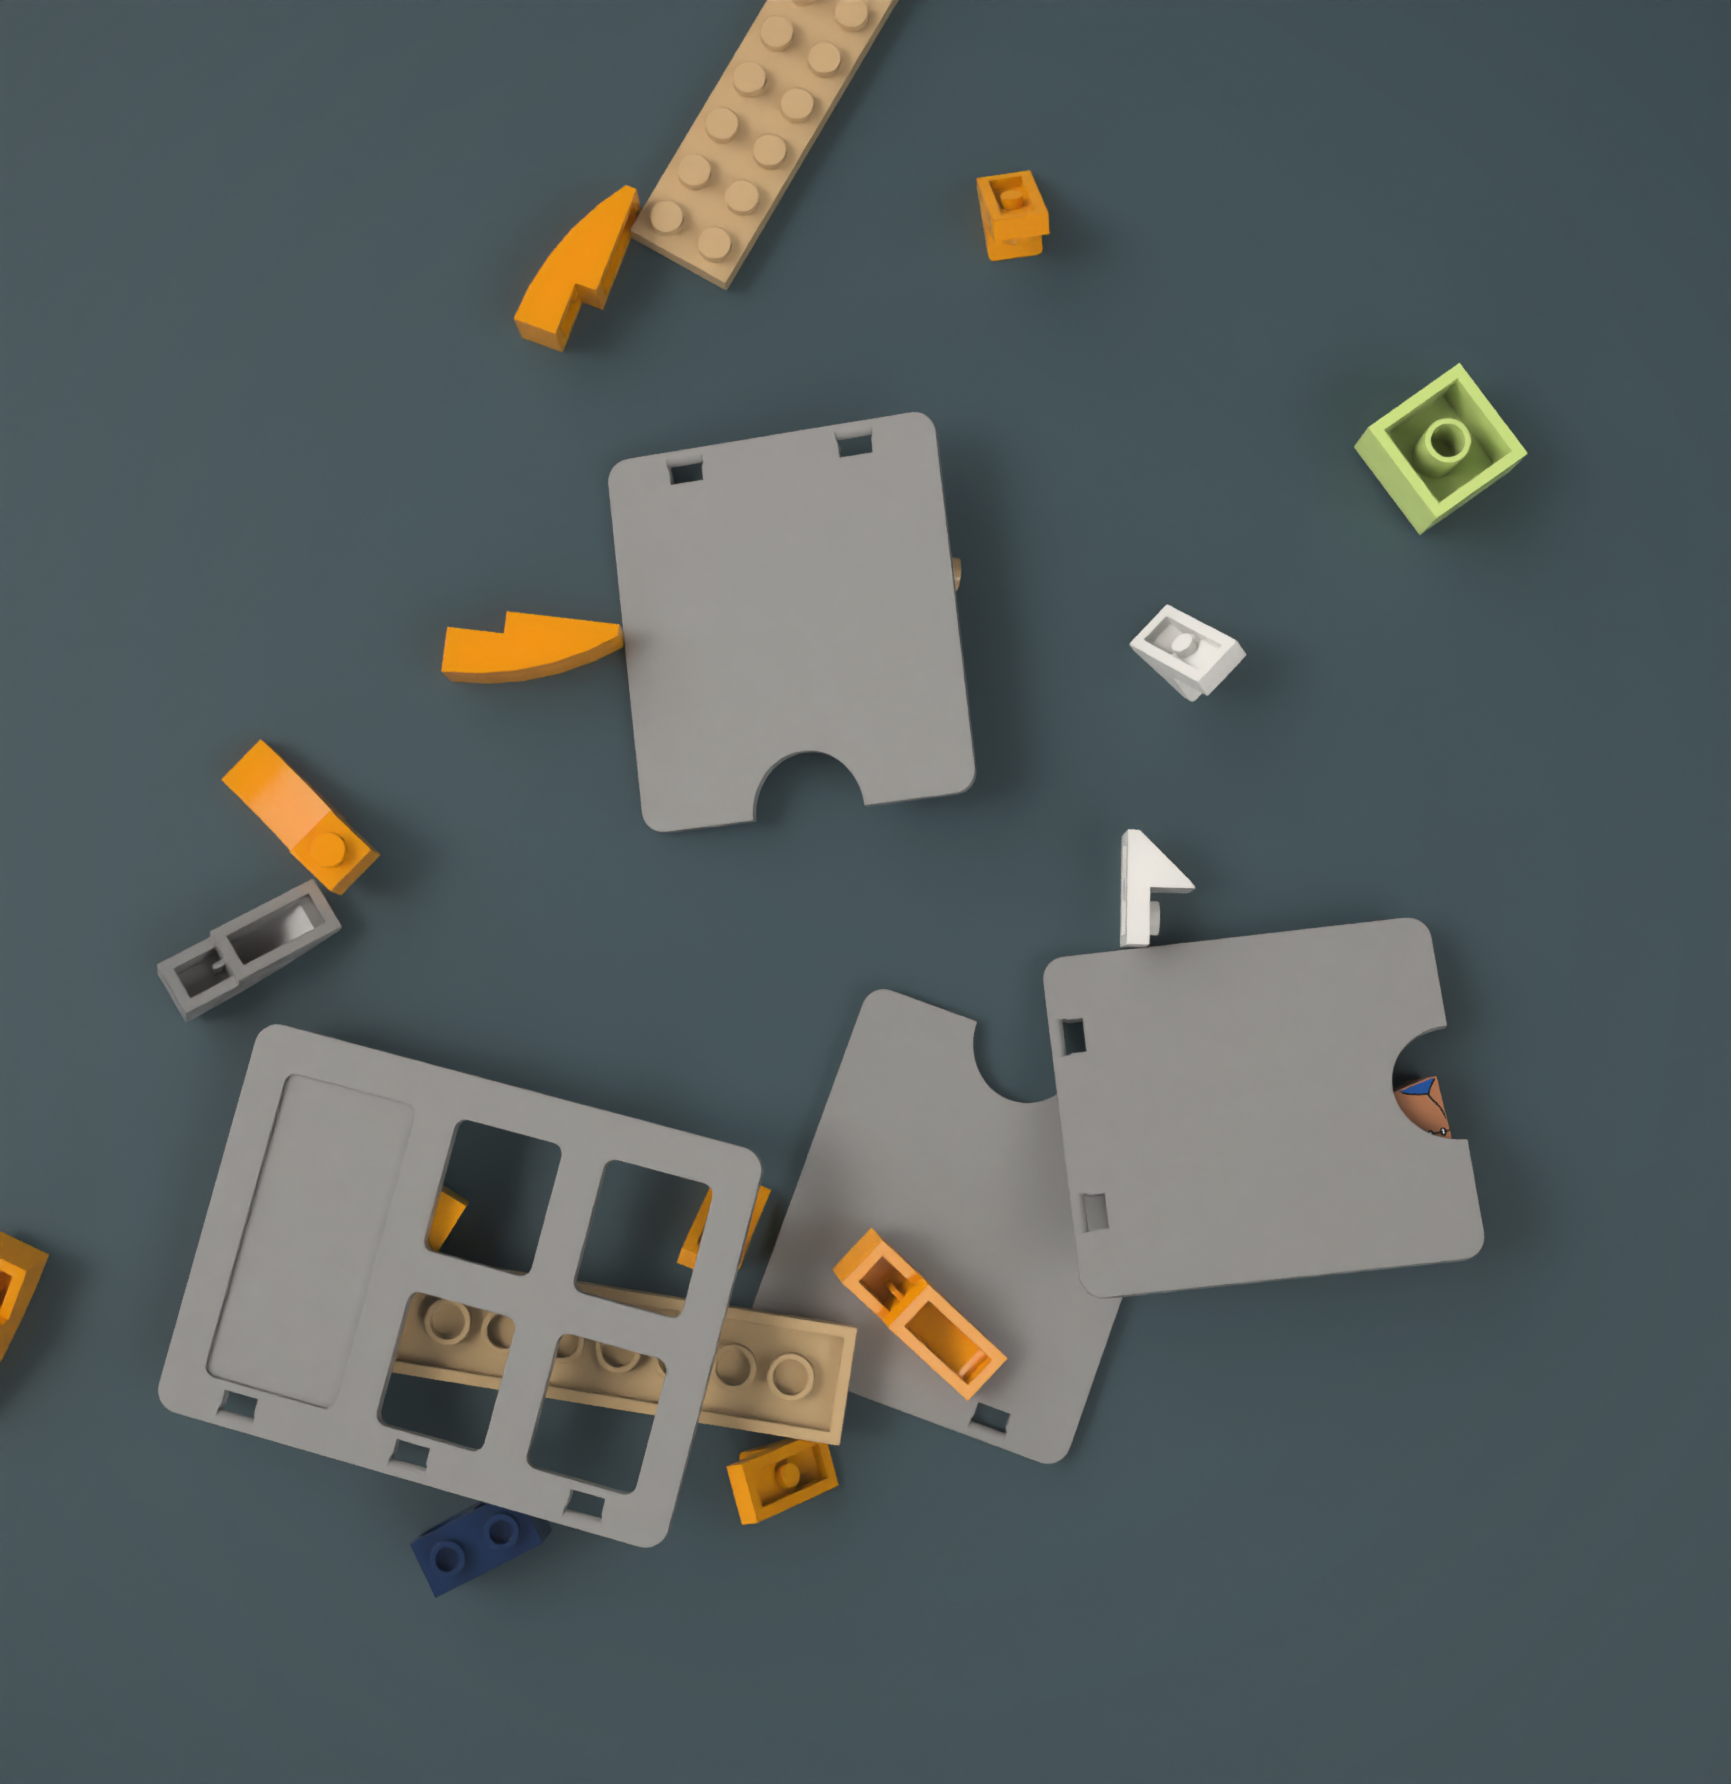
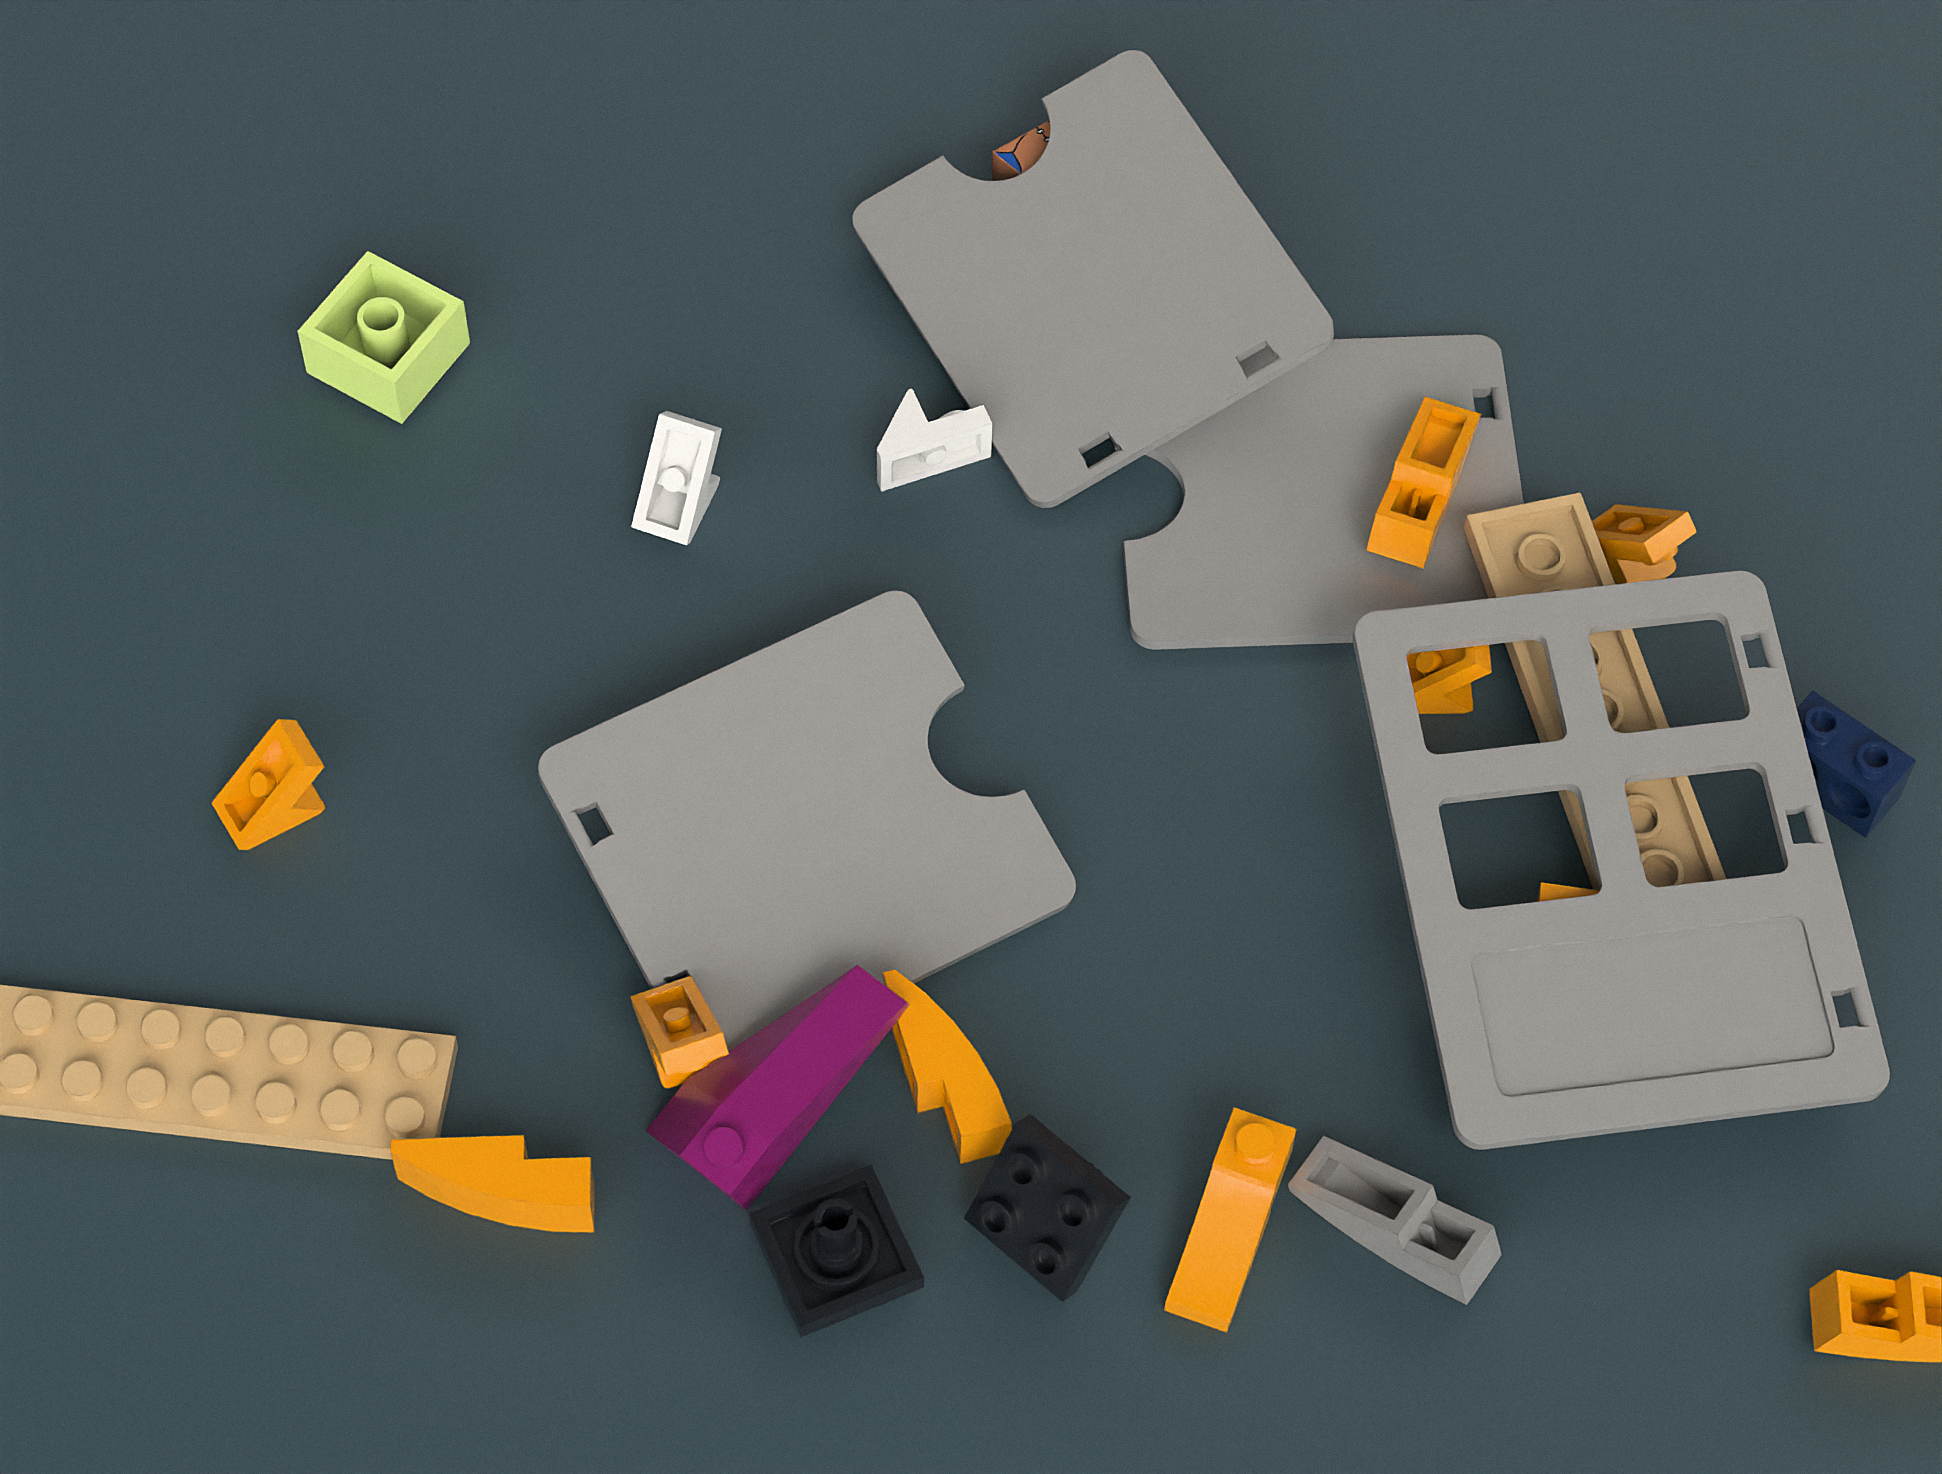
camera: 115 degrees left, 25 degrees down
(362, 674) = (1046, 1207): none -> black plate
(413, 504) = (836, 1250): none -> black plate
(563, 494) = (761, 1100): none -> magenta wedge
(636, 444) = (678, 1030): none -> light orange slope

